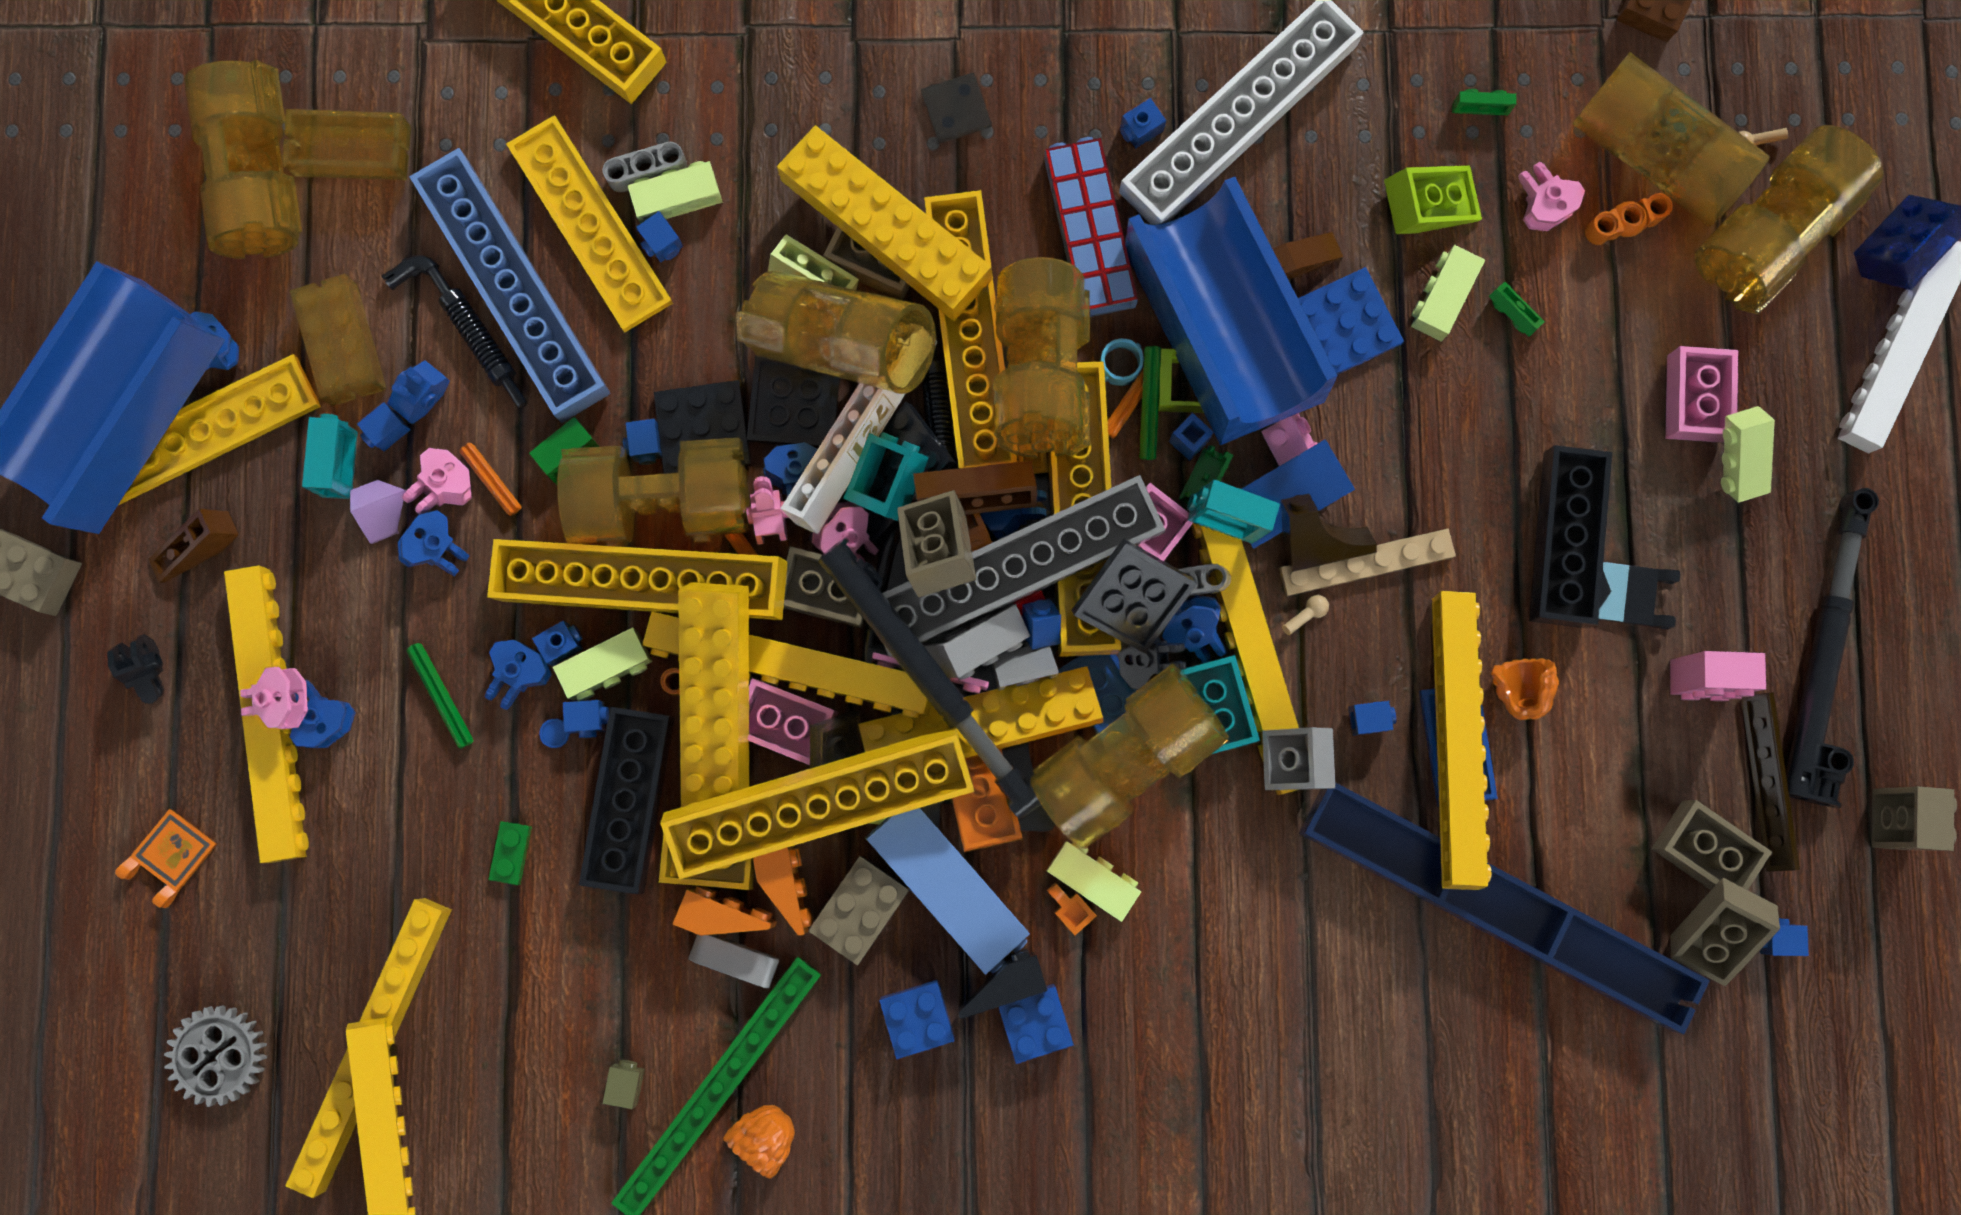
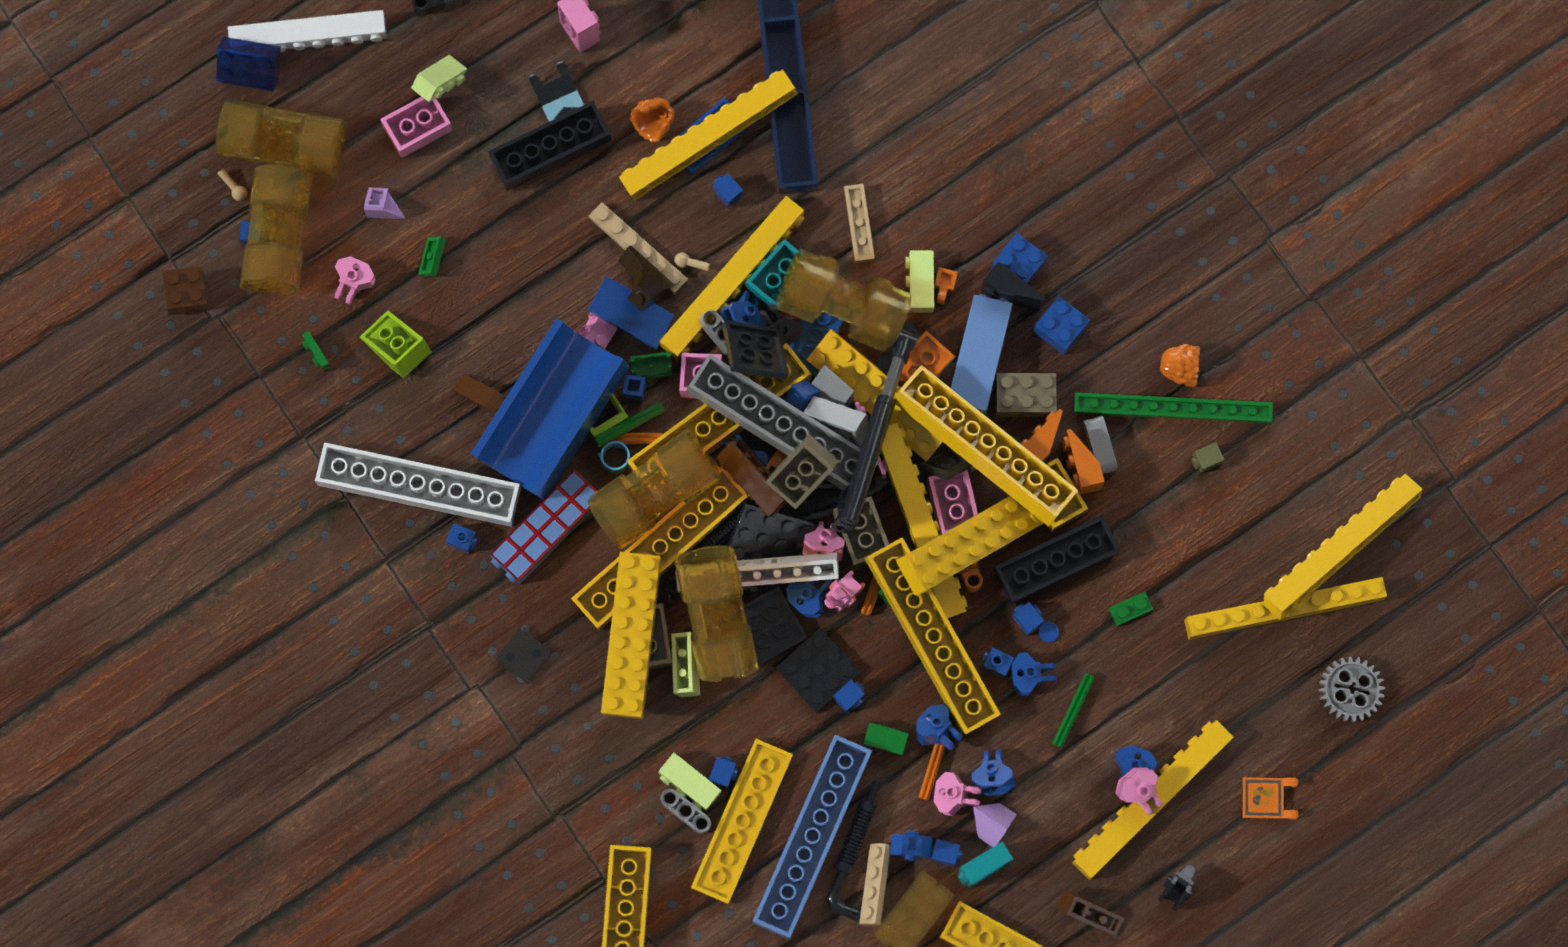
camera: 125 degrees left, 5 degrees down
(405, 320) = (875, 884): none -> tan plate
(528, 514) = (936, 727): none -> blue hinge
(601, 496) = (855, 632): clear yellow cylinder -> none
(603, 665) = (992, 628): yellowish green brick -> none
(867, 468) = (798, 535): teal window -> none
(1221, 855) = (859, 223): none -> tan plate
(1232, 511) = (667, 331): teal window -> none
(1298, 759) = (780, 211): light grey slope -> none
(1351, 320) = (503, 347): blue plate -> none
(1446, 292) = (448, 301): yellowish green brick -> none
(1624, 293) = (381, 205): none -> lavender slope
(1639, 212) = (329, 220): orange piece -> none

